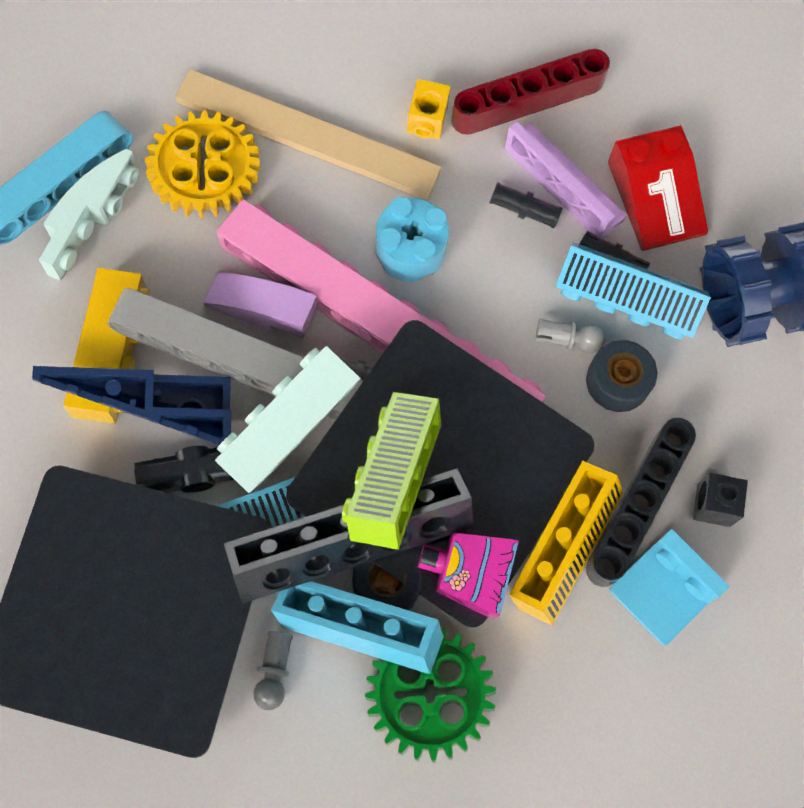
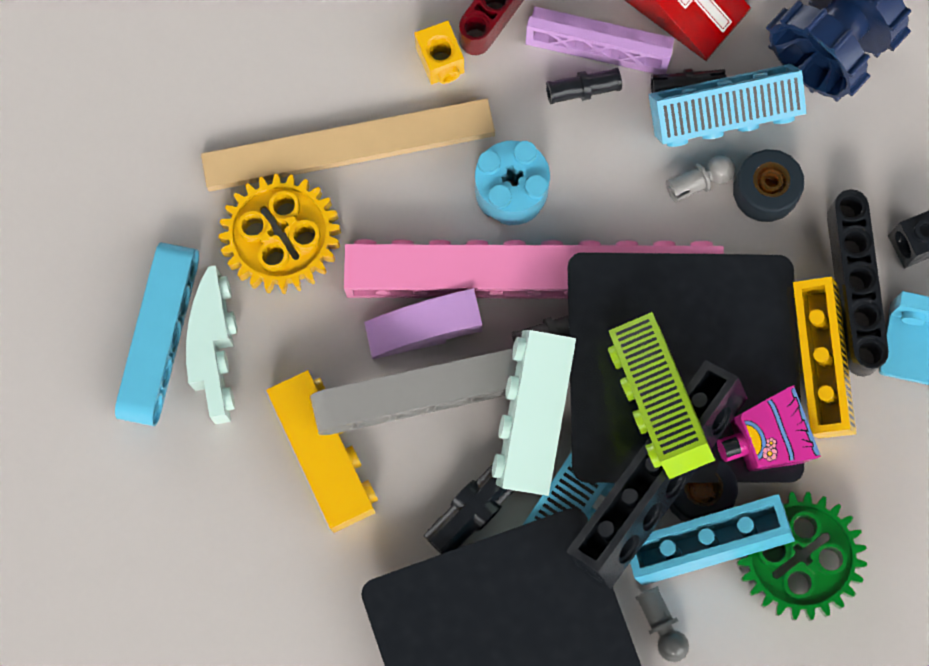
camera: 25 degrees left, 5 degrees up
(176, 401) = (425, 459): dark blue wedge -> none

